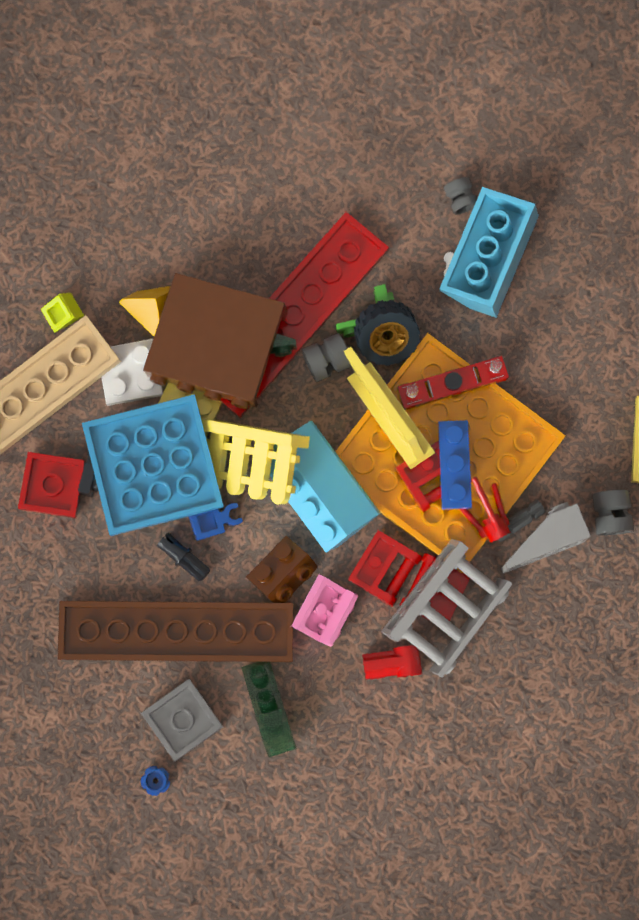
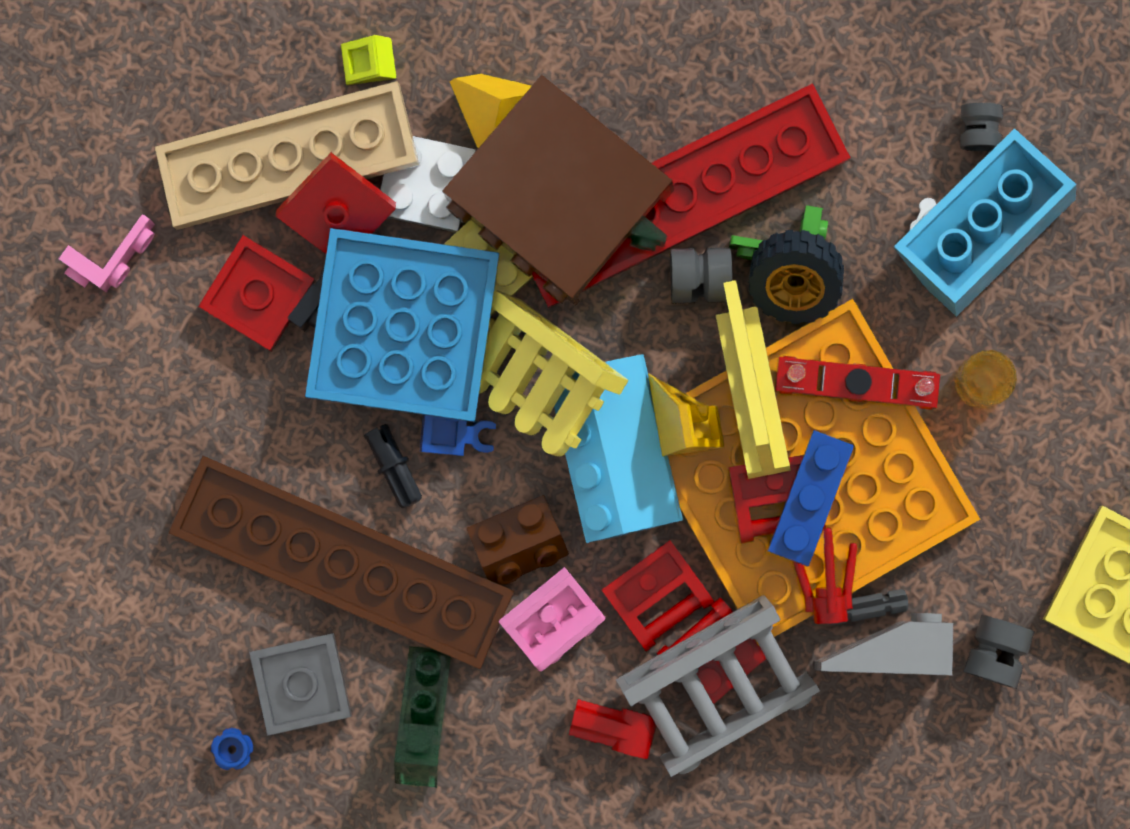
camera: 25 degrees right, 5 degrees up
(75, 404) = (334, 199): none -> red plate
(355, 451) = (684, 422): none -> yellow slope
(531, 348) = (985, 379): none -> clear yellow wheel

